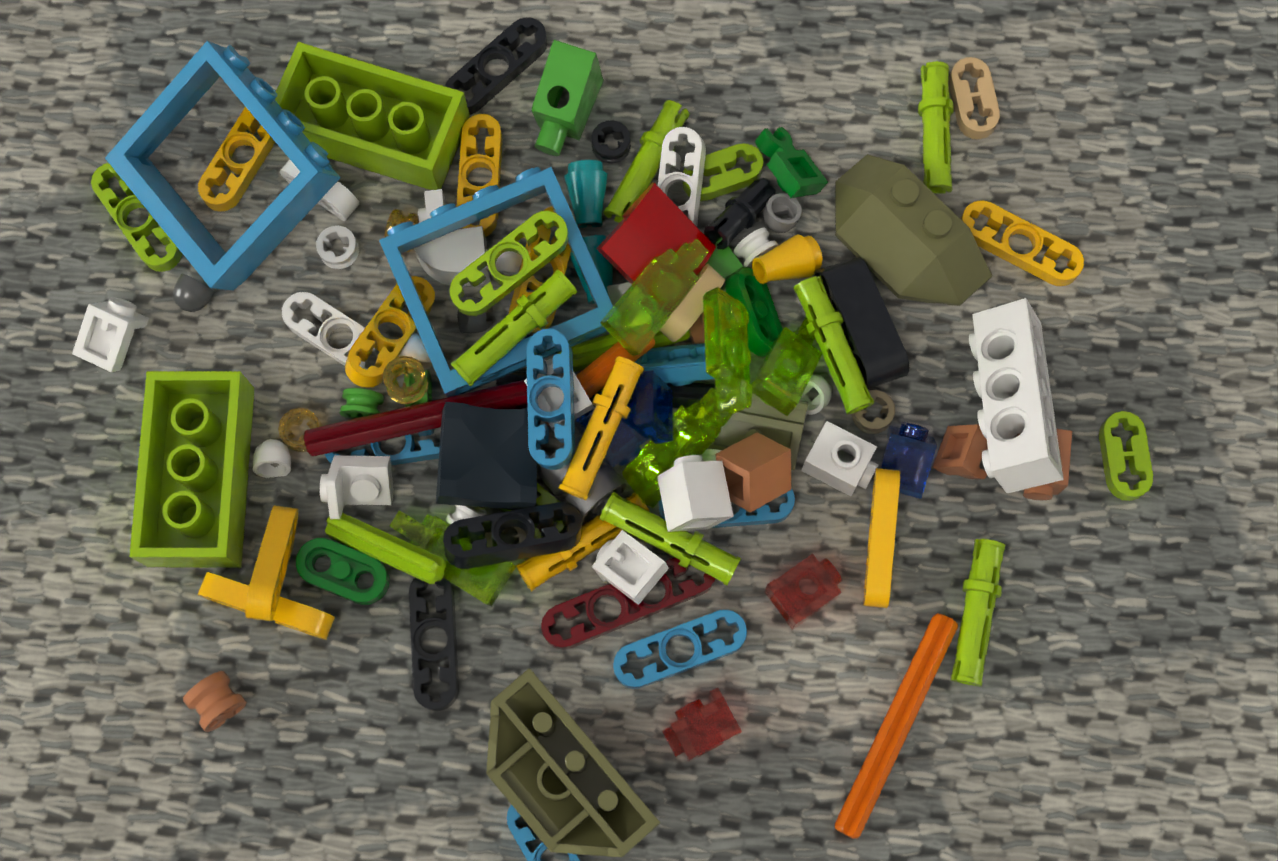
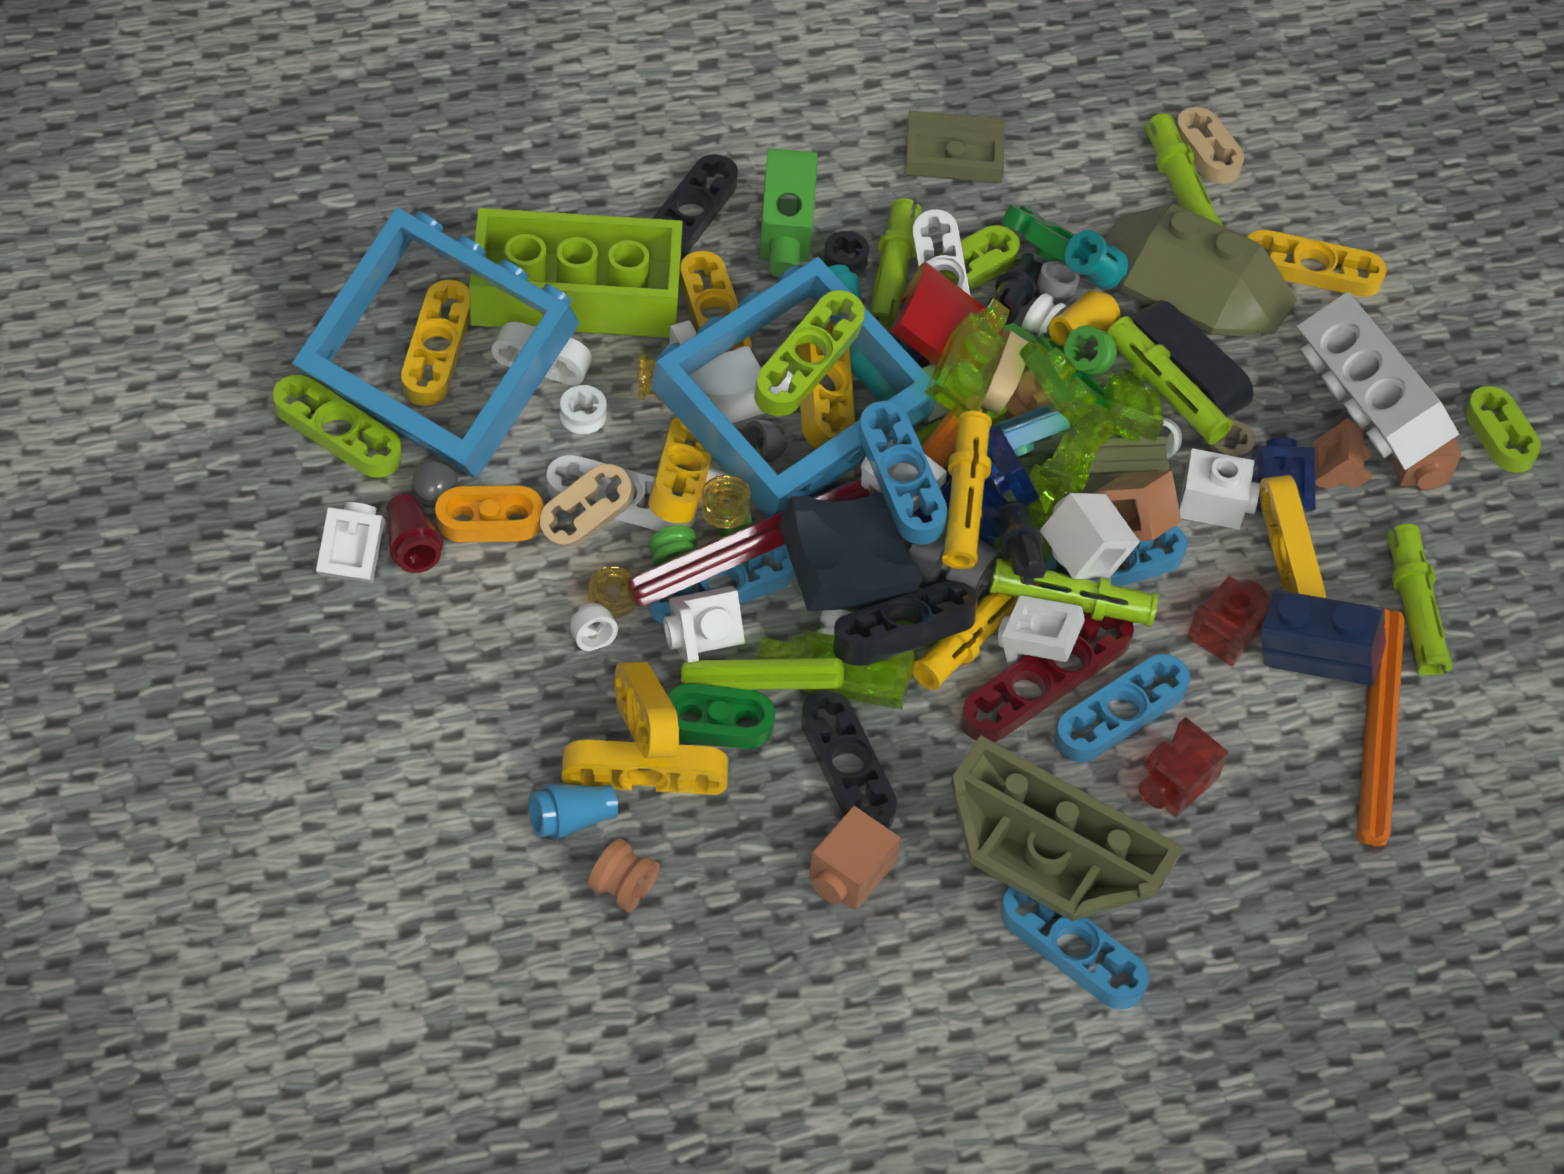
camera: 25 degrees left, 20 degrees down
(158, 337) = (412, 535): none -> dark red cone
(192, 470) = (513, 646): lime brick -> none
(195, 626) = (565, 809): none -> dark azure cone
(228, 332) = (489, 513): none -> light orange plate
(298, 339) = (579, 495): none -> tan beam
(398, 738) = (853, 859): none -> nougat brick
(514, 327) = (848, 397): lime pin -> none
(634, 487) = (1021, 541): none -> black axle
(744, 52) = (955, 146): none -> olive plate
(785, 305) = (1106, 350): none -> bright green bush
(814, 192) = (1092, 257): none -> teal bush
(871, 637) = (1324, 637): none -> dark blue brick

